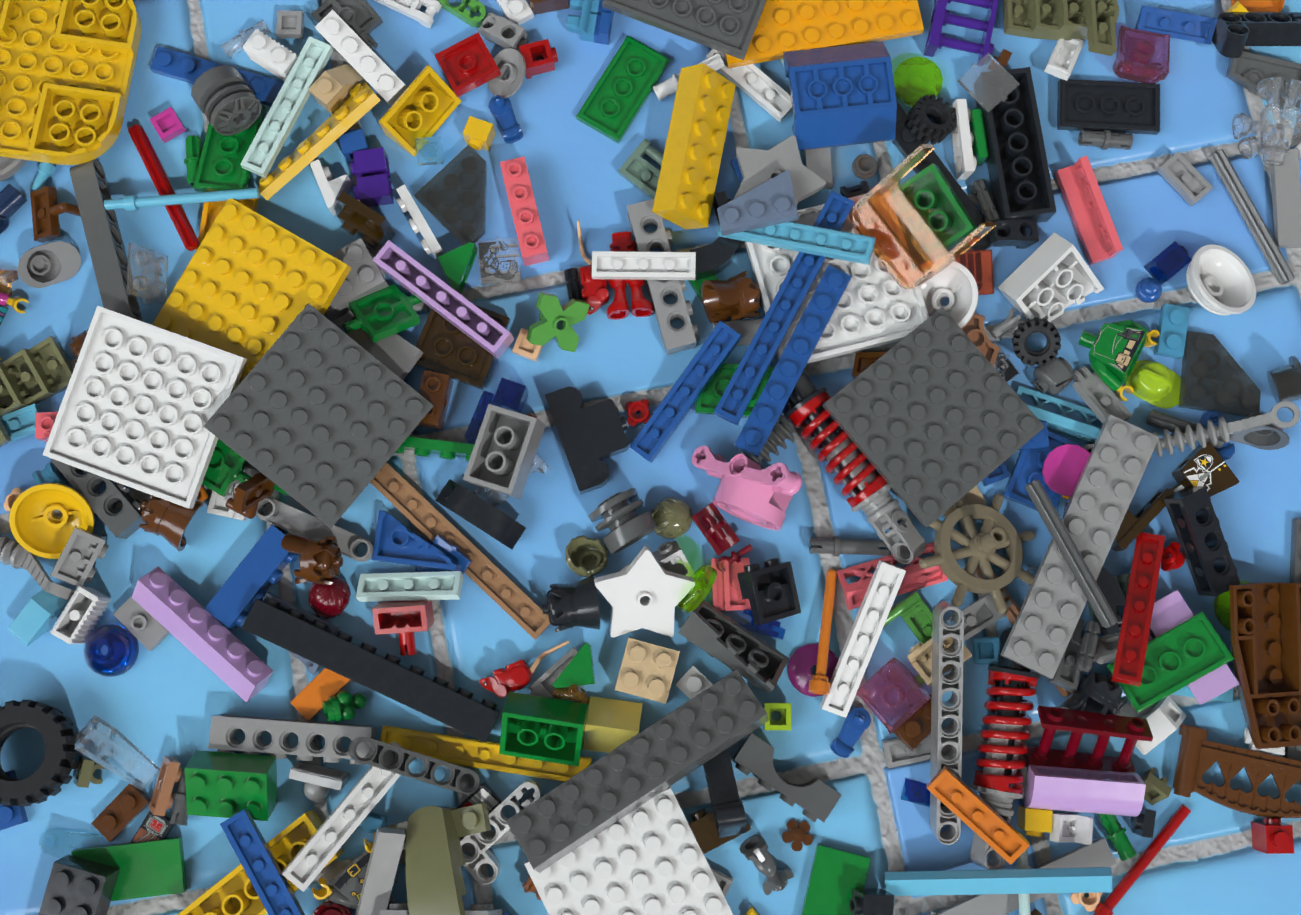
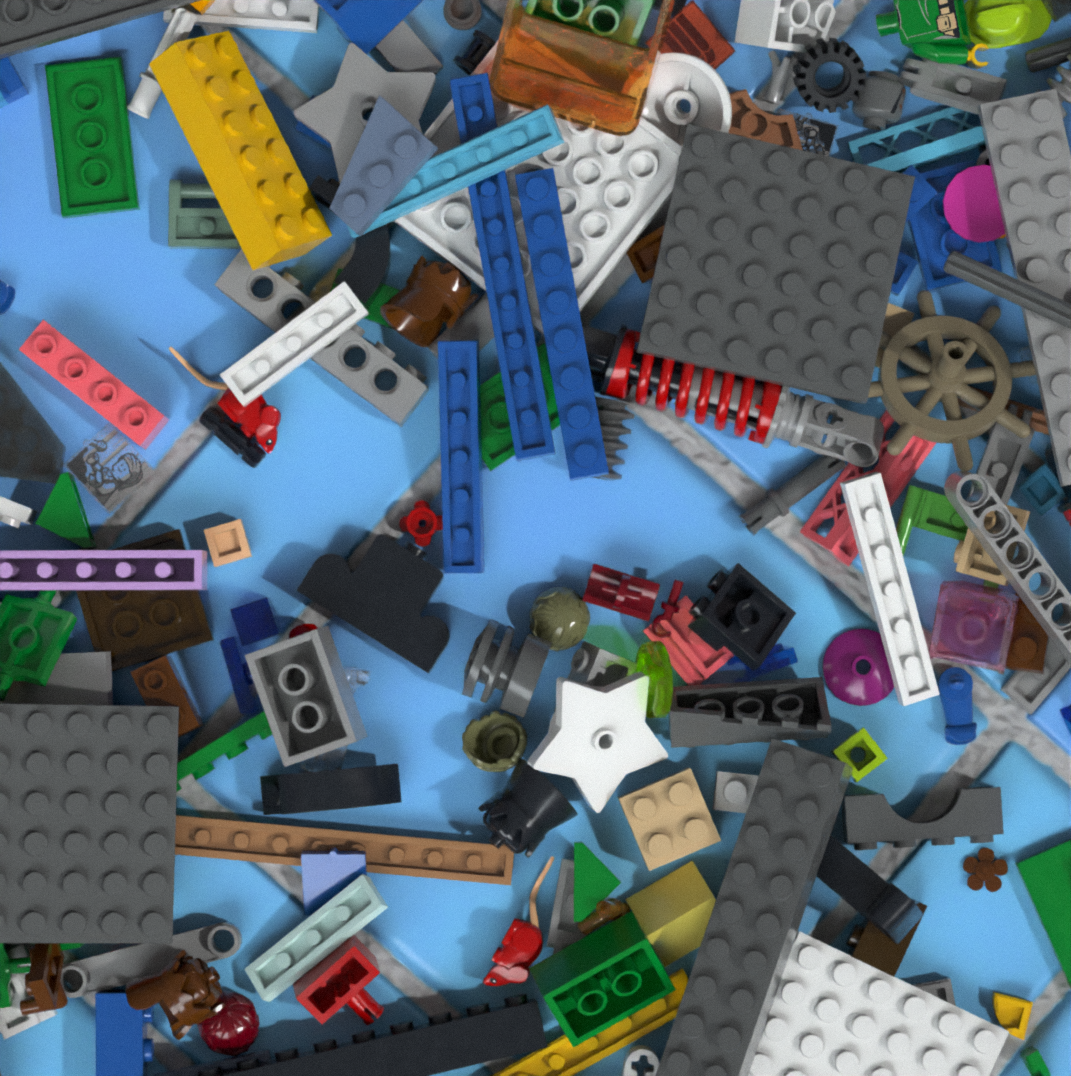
camera: 40 degrees left, 5 degrees up
(402, 545) = (270, 896): blue wing -> none
(557, 321) = (242, 490): bright green plant -> none
(640, 305) = (249, 334): red piece -> none
(747, 490) = (622, 519): bright pink piece -> none
(756, 850) = (951, 925): dark grey animal -> none
(819, 682) = (878, 677): orange piece -> none

